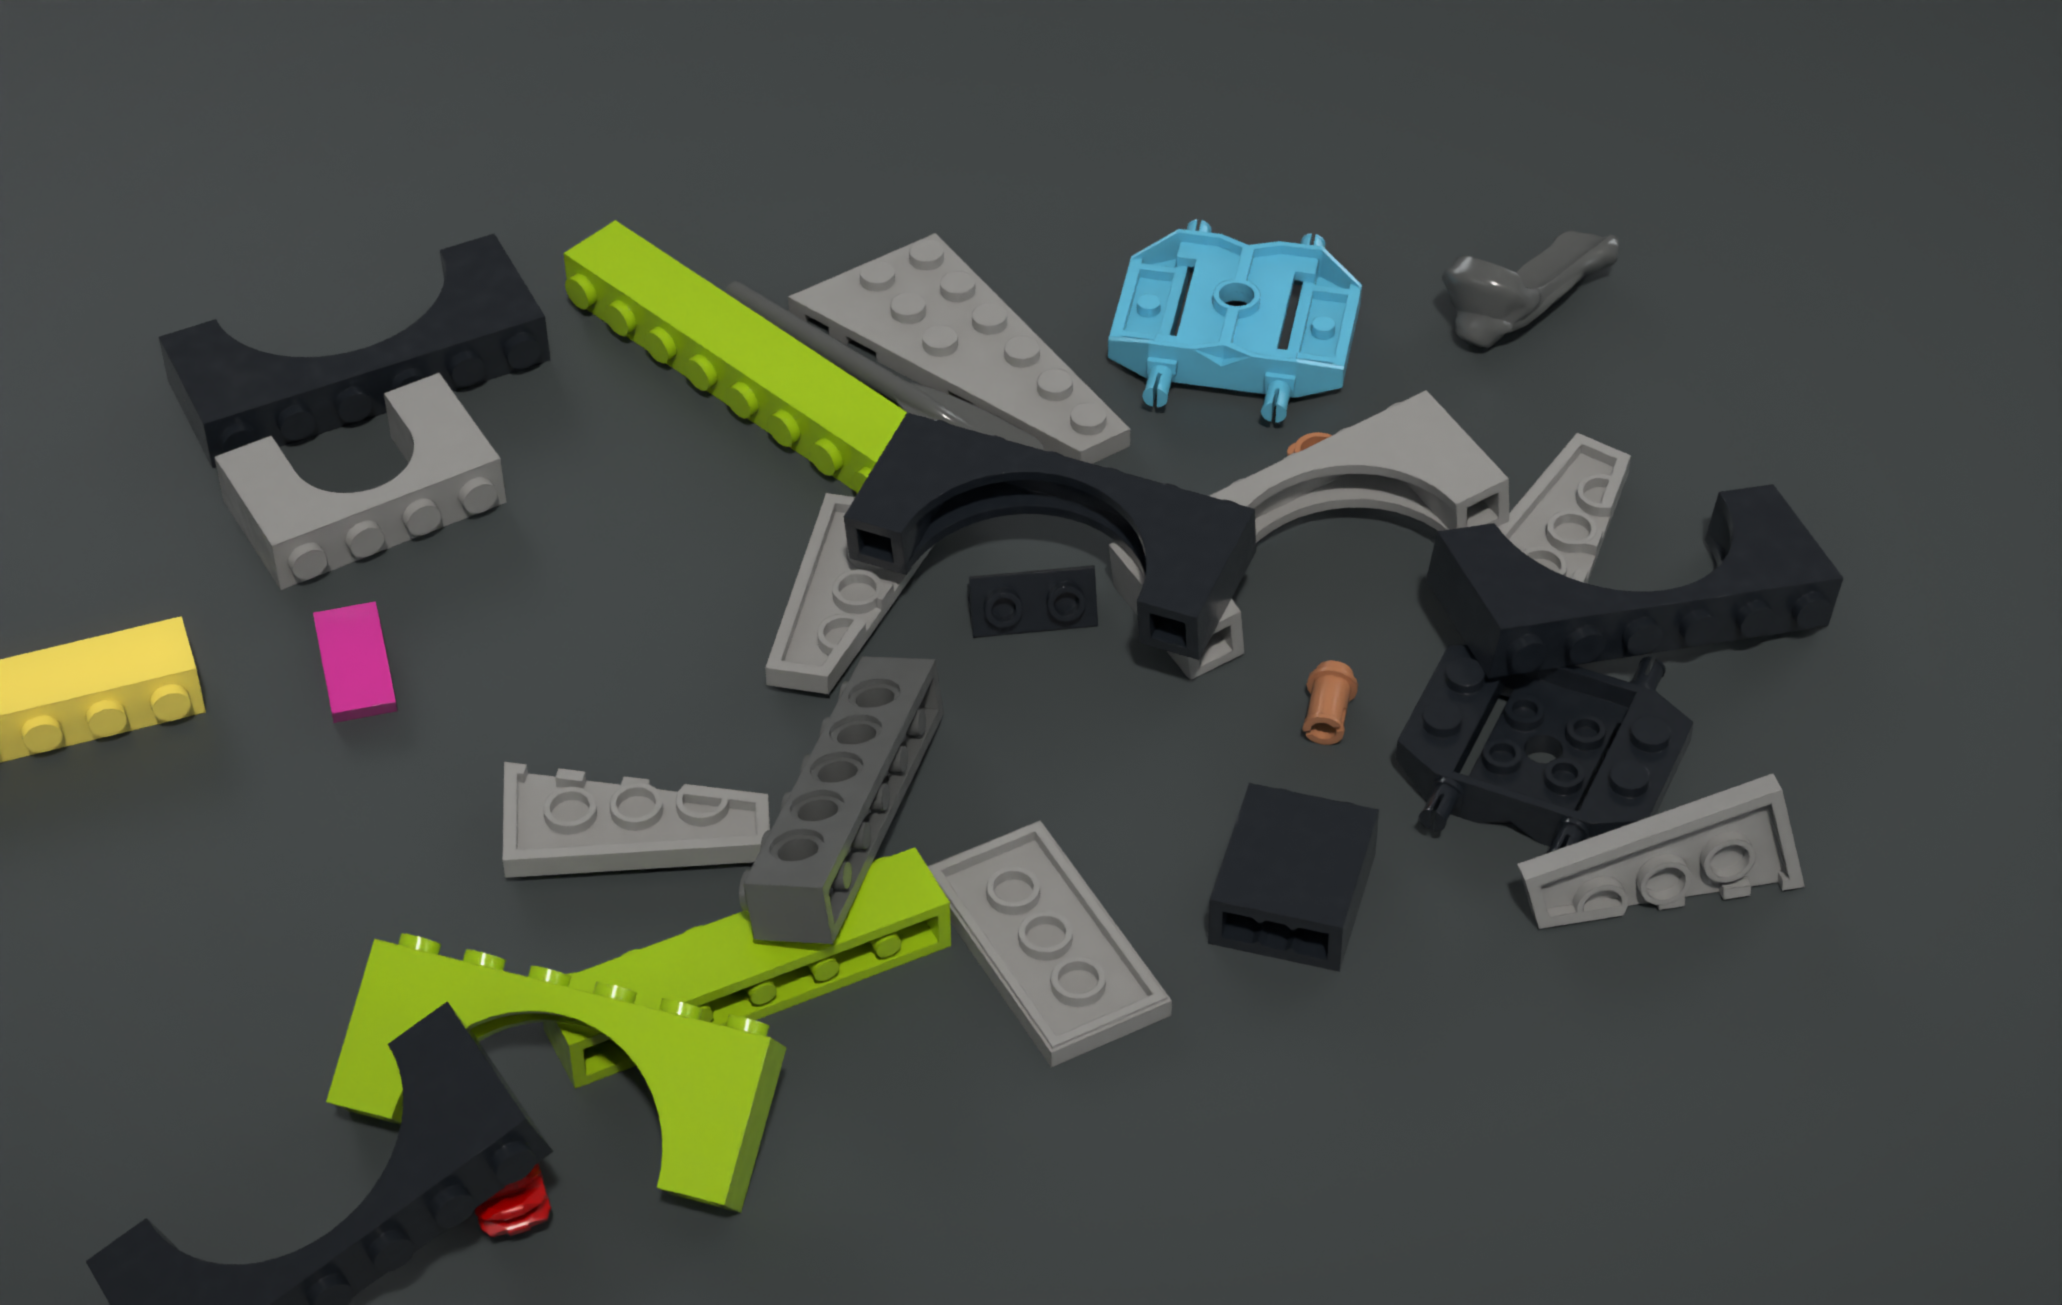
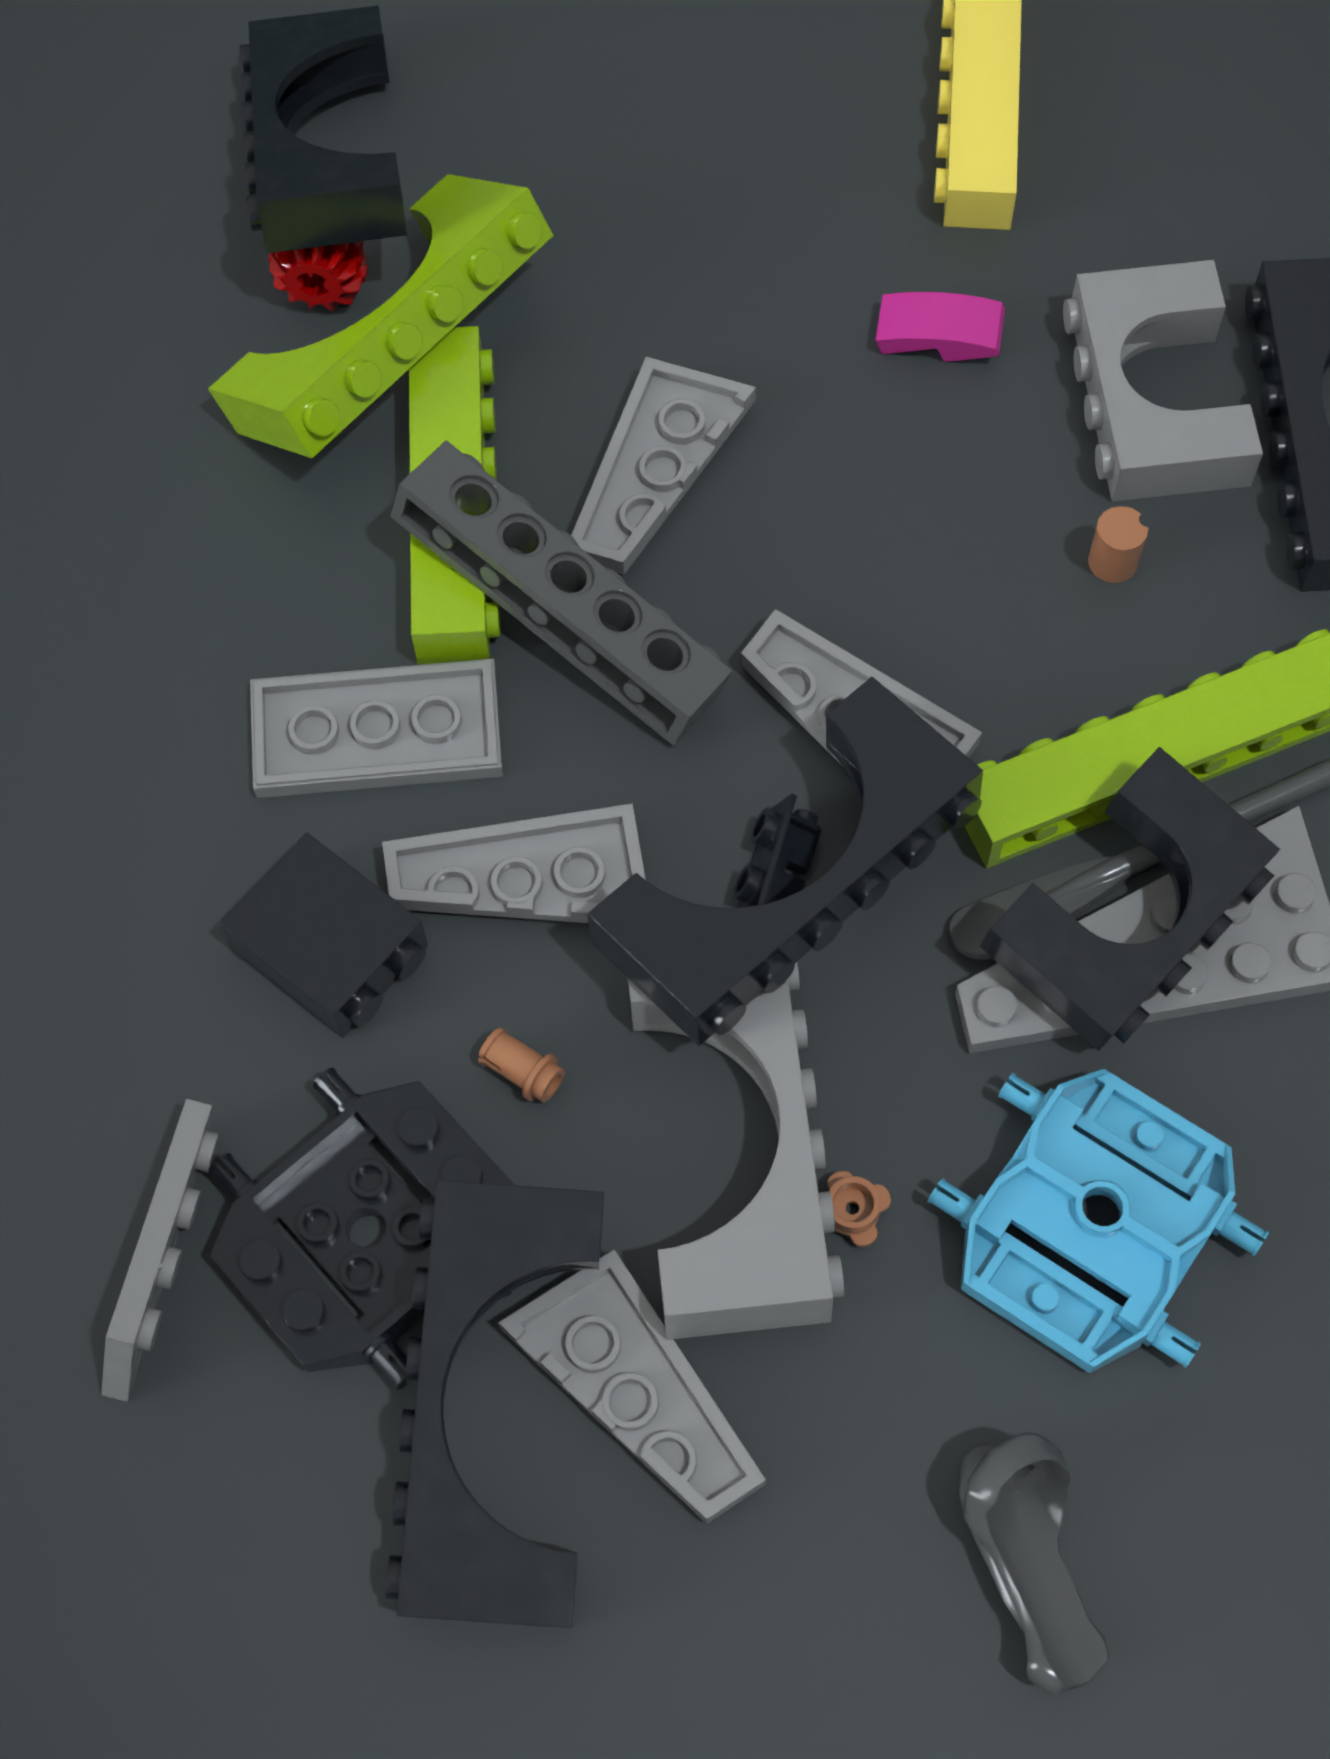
camera: 115 degrees right, 20 degrees up
(572, 462) = (1117, 544): none -> nougat piece
(909, 292) = (1103, 982): none -> black arch
(1128, 751) = (518, 868): none -> light grey wing

